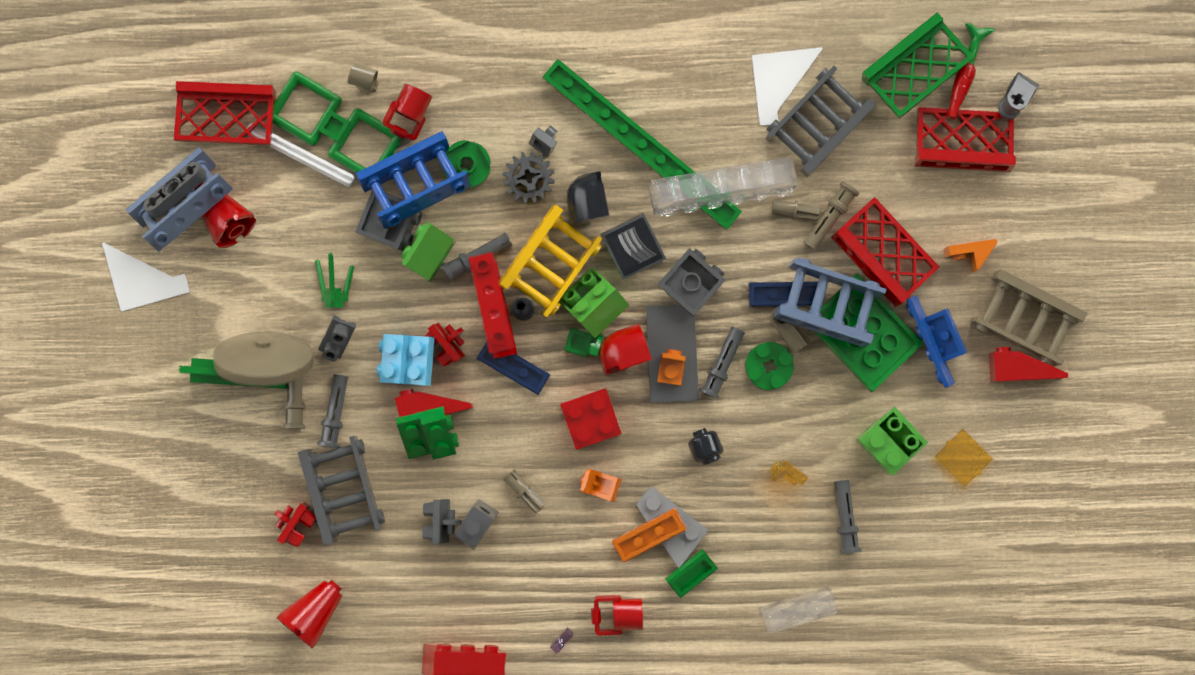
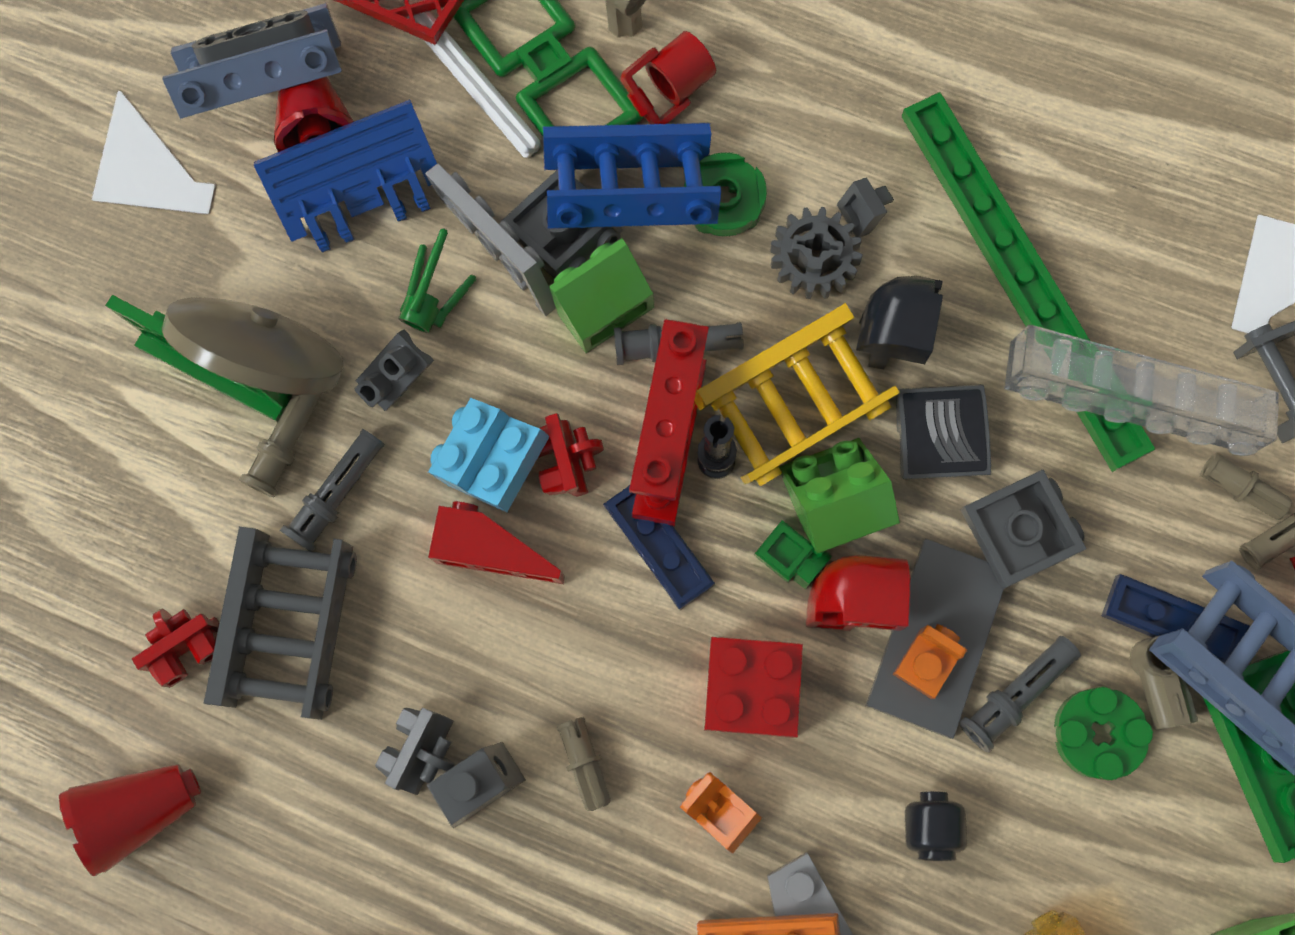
camera: 30 degrees right, 10 degrees down
(259, 238) = (348, 168): none -> blue hinge
(359, 243) = (496, 238): none -> light grey wing
(428, 434) = (465, 591): green plate -> none

